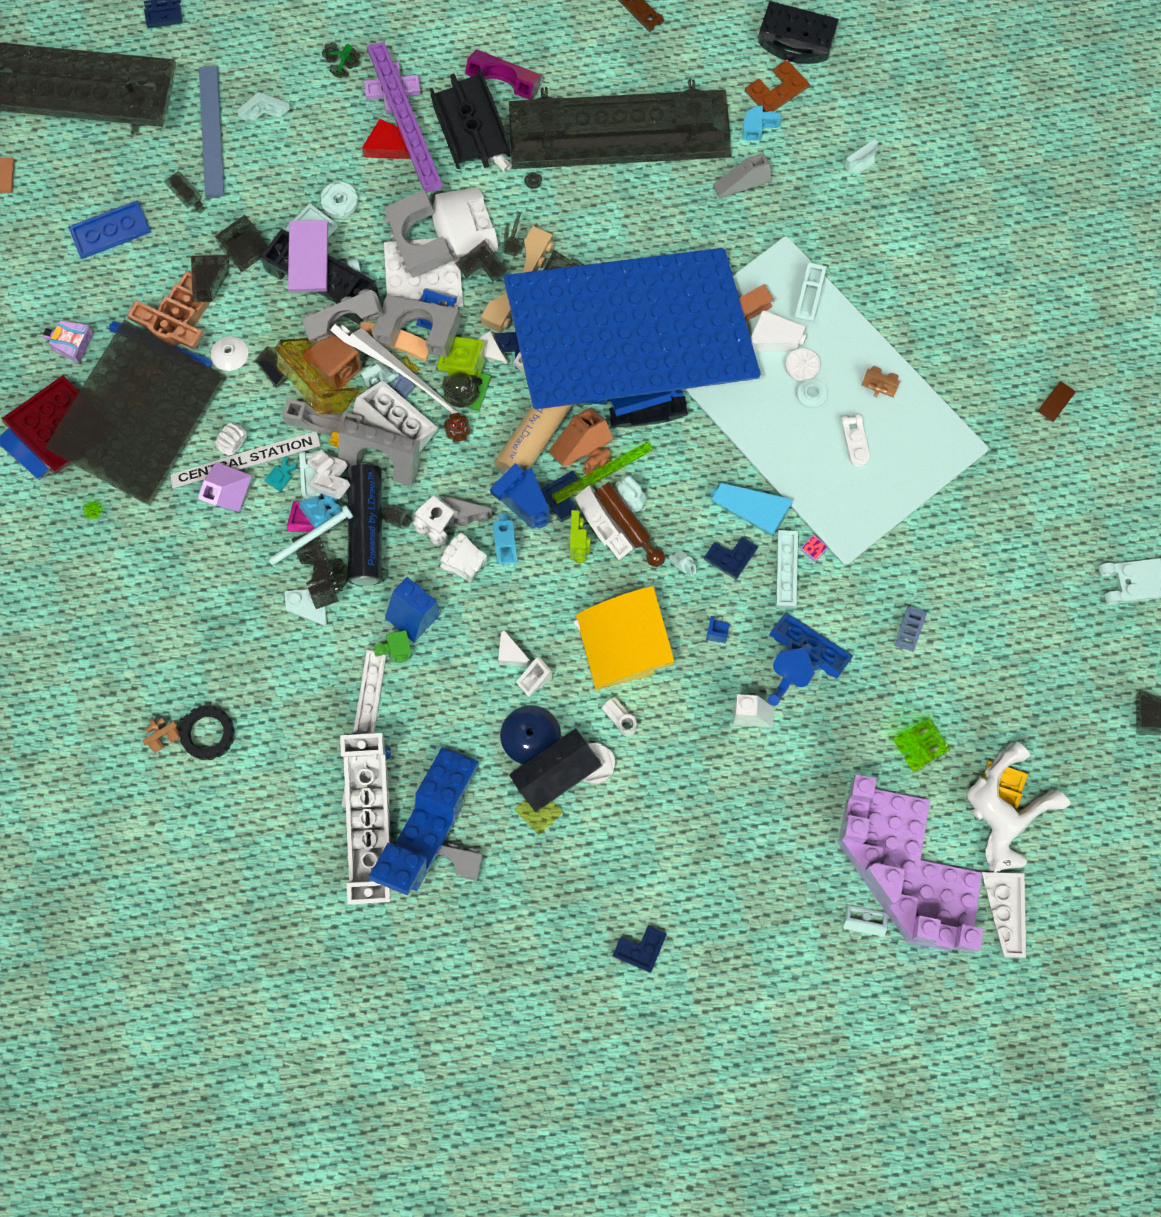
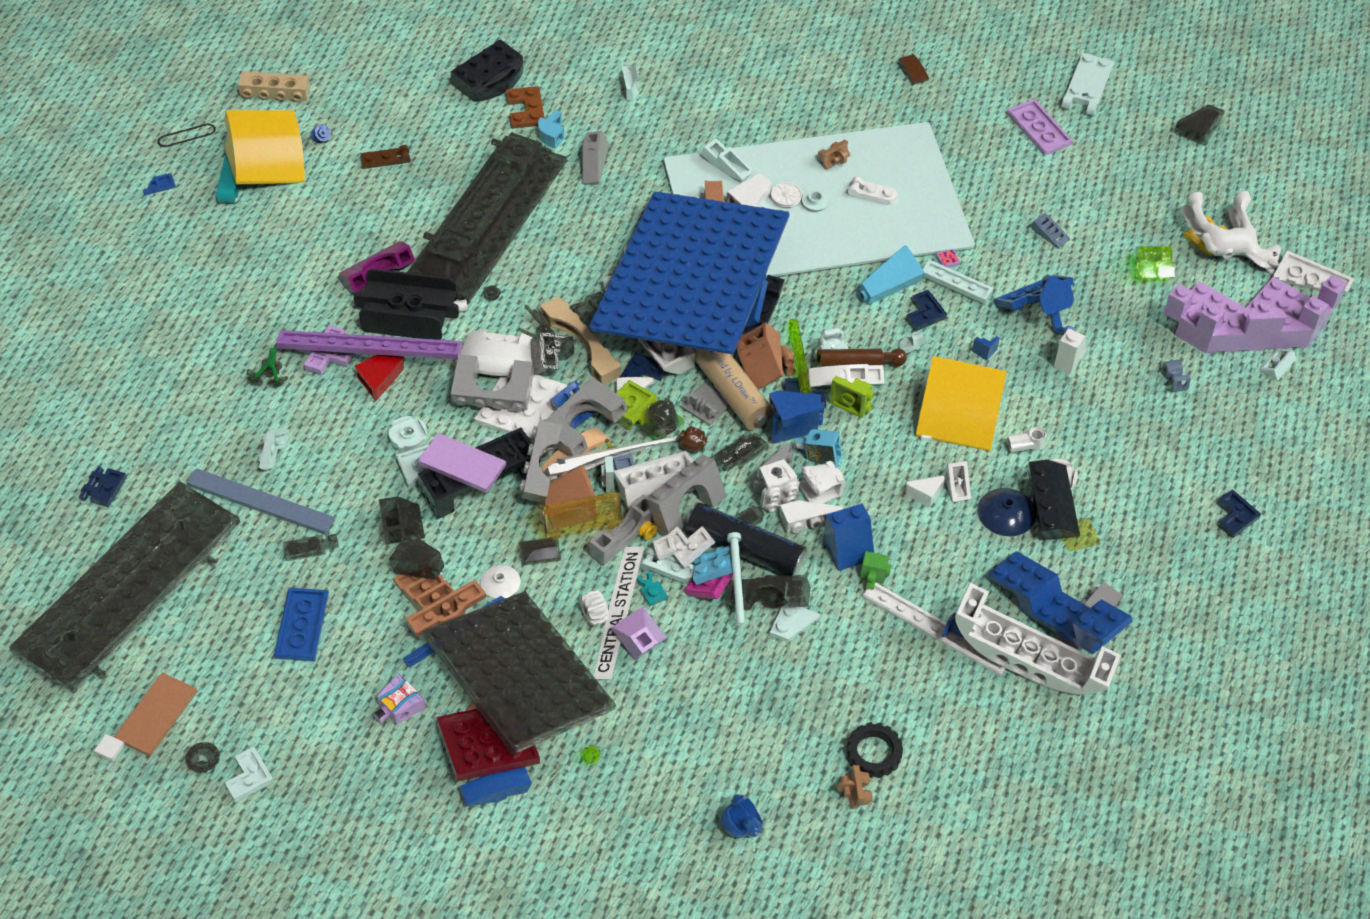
camera: 65 degrees left, 20 degrees down
(82, 657) = (741, 818): none -> blue helmet
(422, 558) = (804, 515): none -> white slope
(465, 473) = (740, 451): none -> clear smoke plate
(506, 417) = (705, 403): none -> light grey hinge
(790, 821) = (1174, 371): none -> sand blue leg
(1054, 558) = (1039, 127): none -> lavender tile

